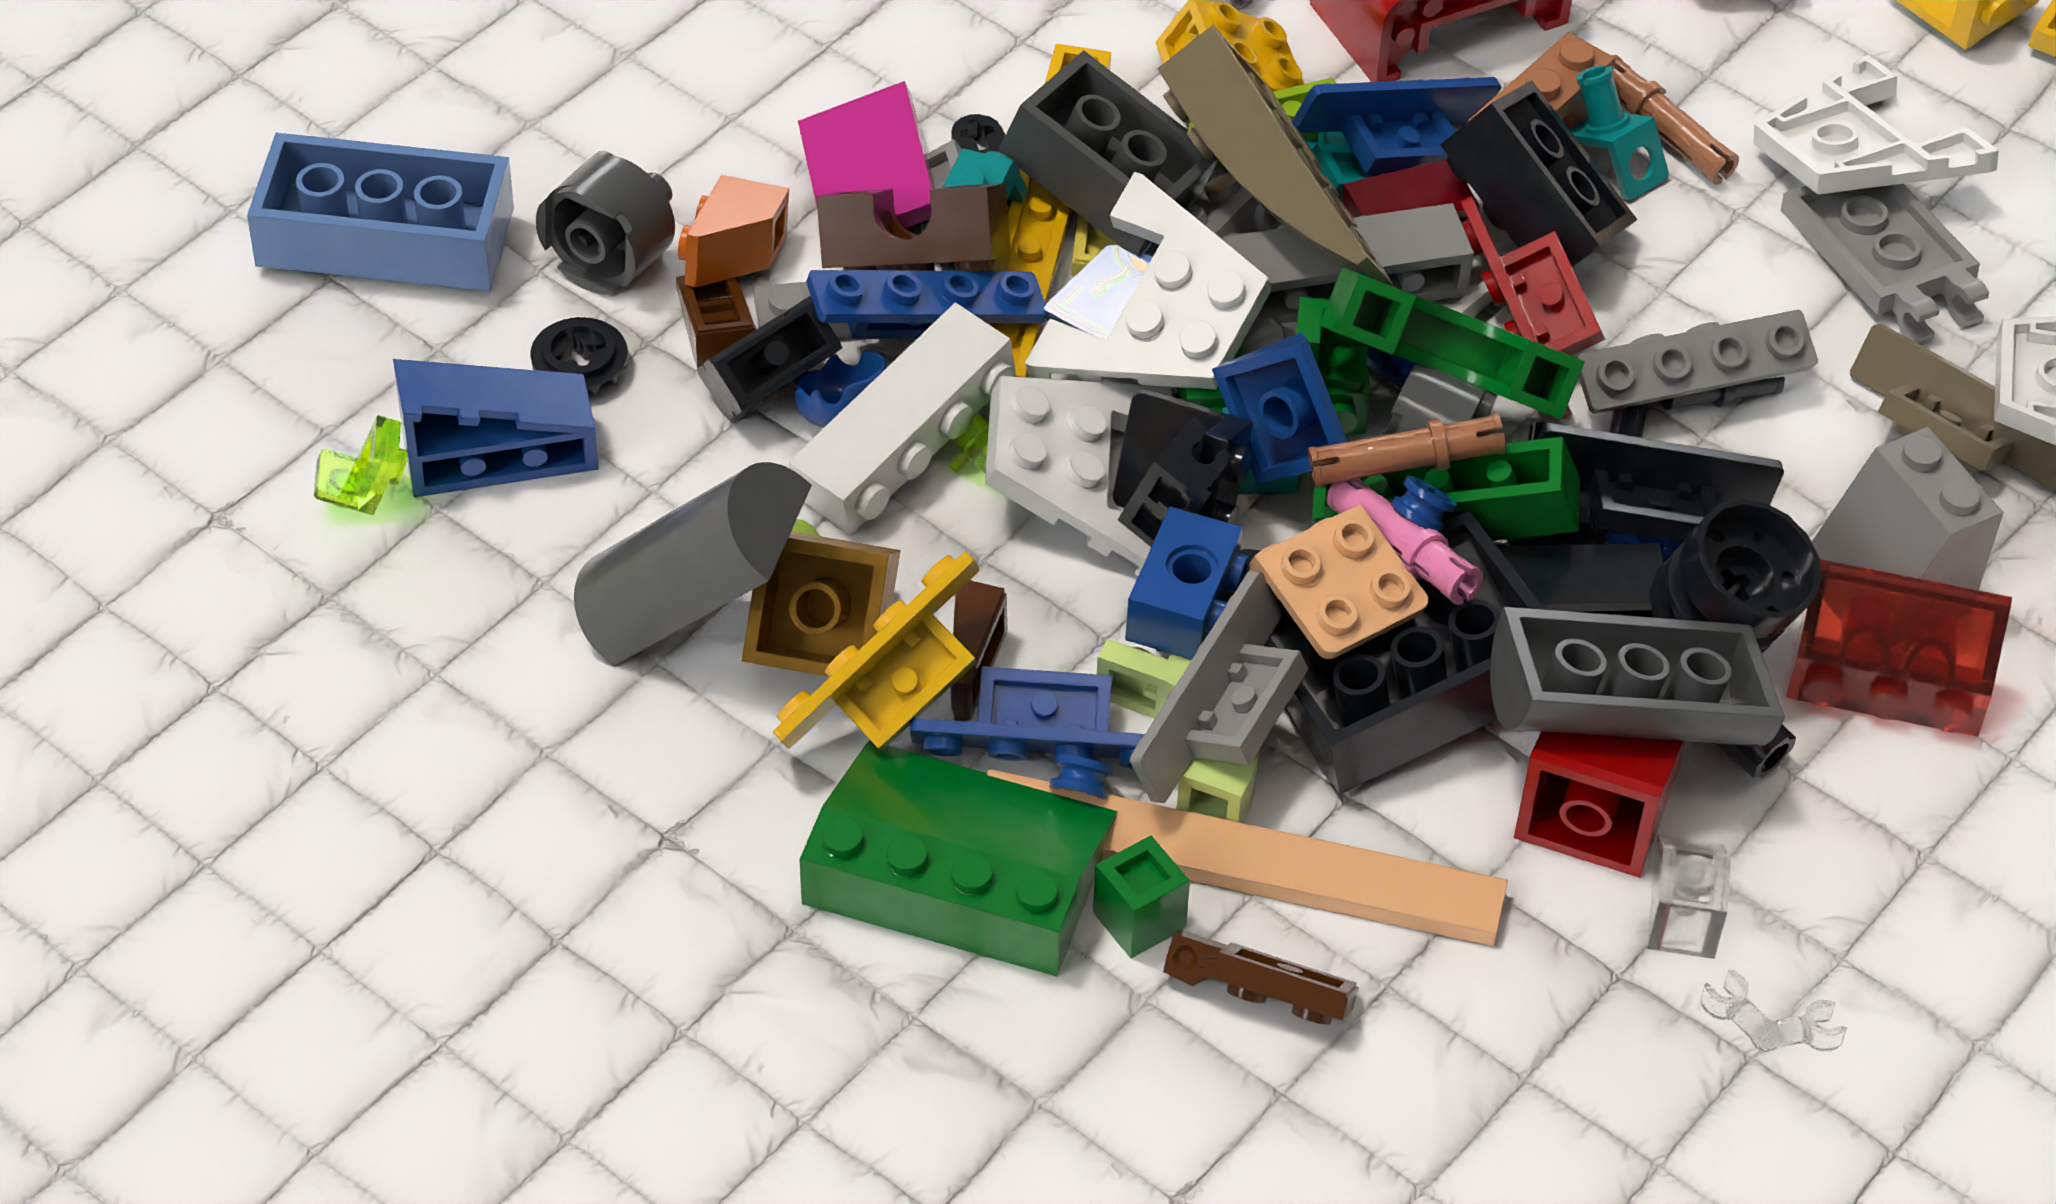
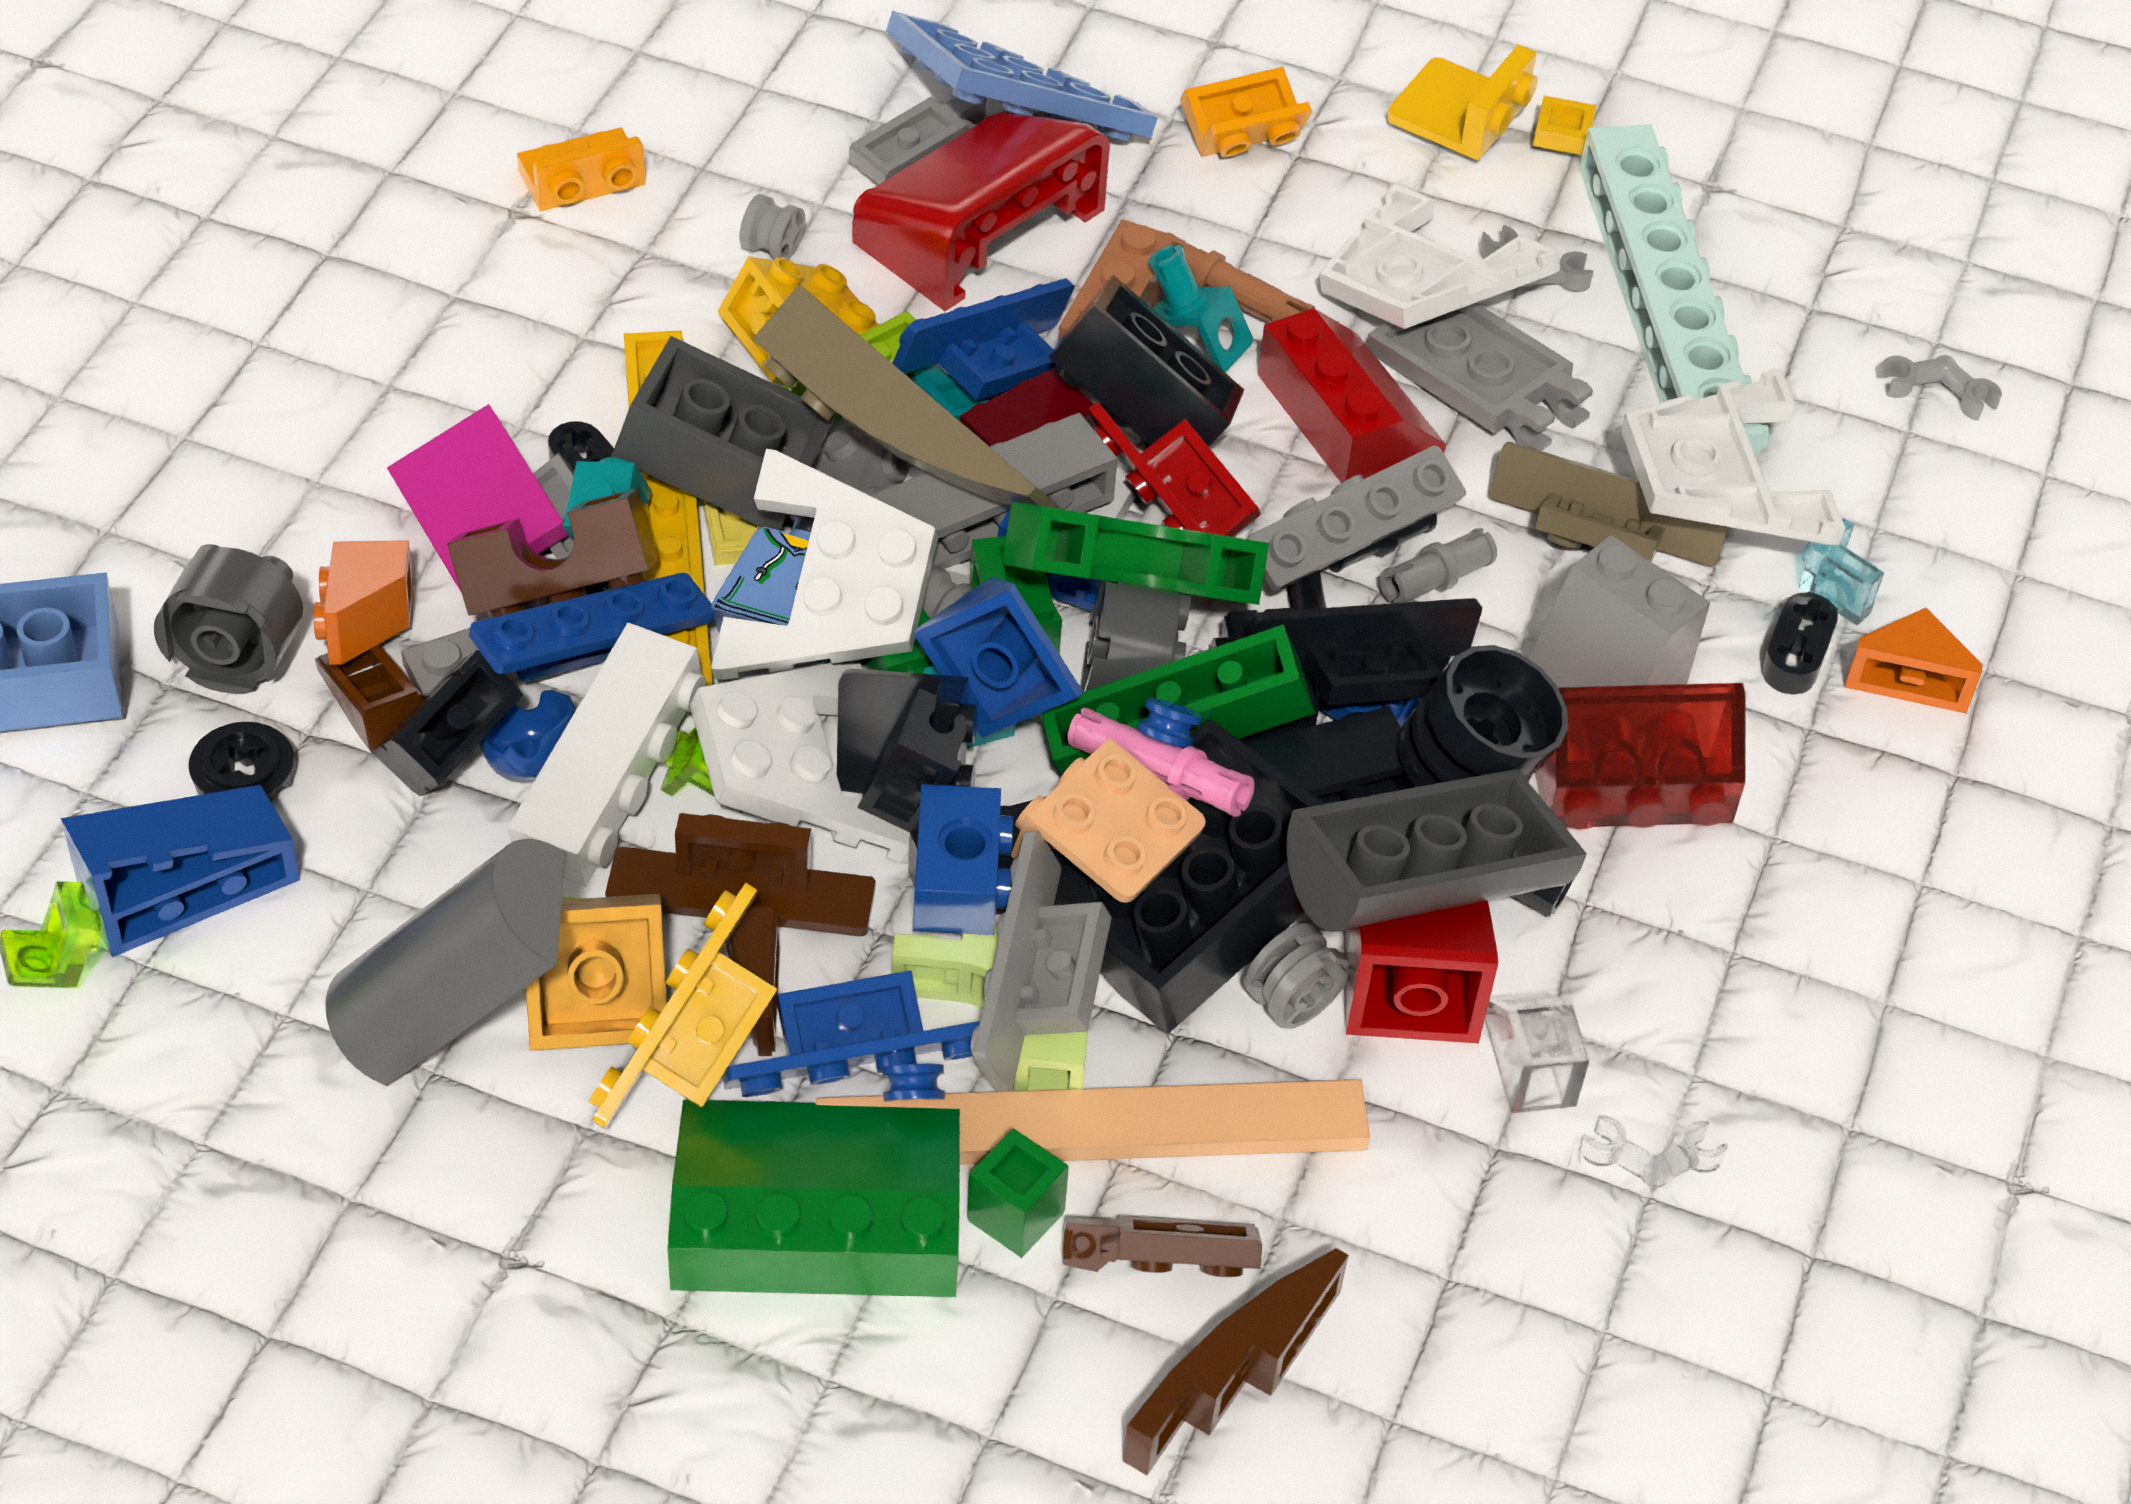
camera: 20 degrees left, 0 degrees up
(1010, 549) = (726, 854): none -> reddish brown bracket
(1309, 1085) = (1248, 1346): none -> reddish brown slope
(1407, 450) = (1161, 662): nougat pin -> none
(1477, 769) = (1297, 975): none -> light grey wheel
(1735, 243) = (1341, 395): none -> red slope
(1769, 427) = (1438, 566): none -> light grey pin
(2016, 176) = (1572, 264): none -> light grey arm

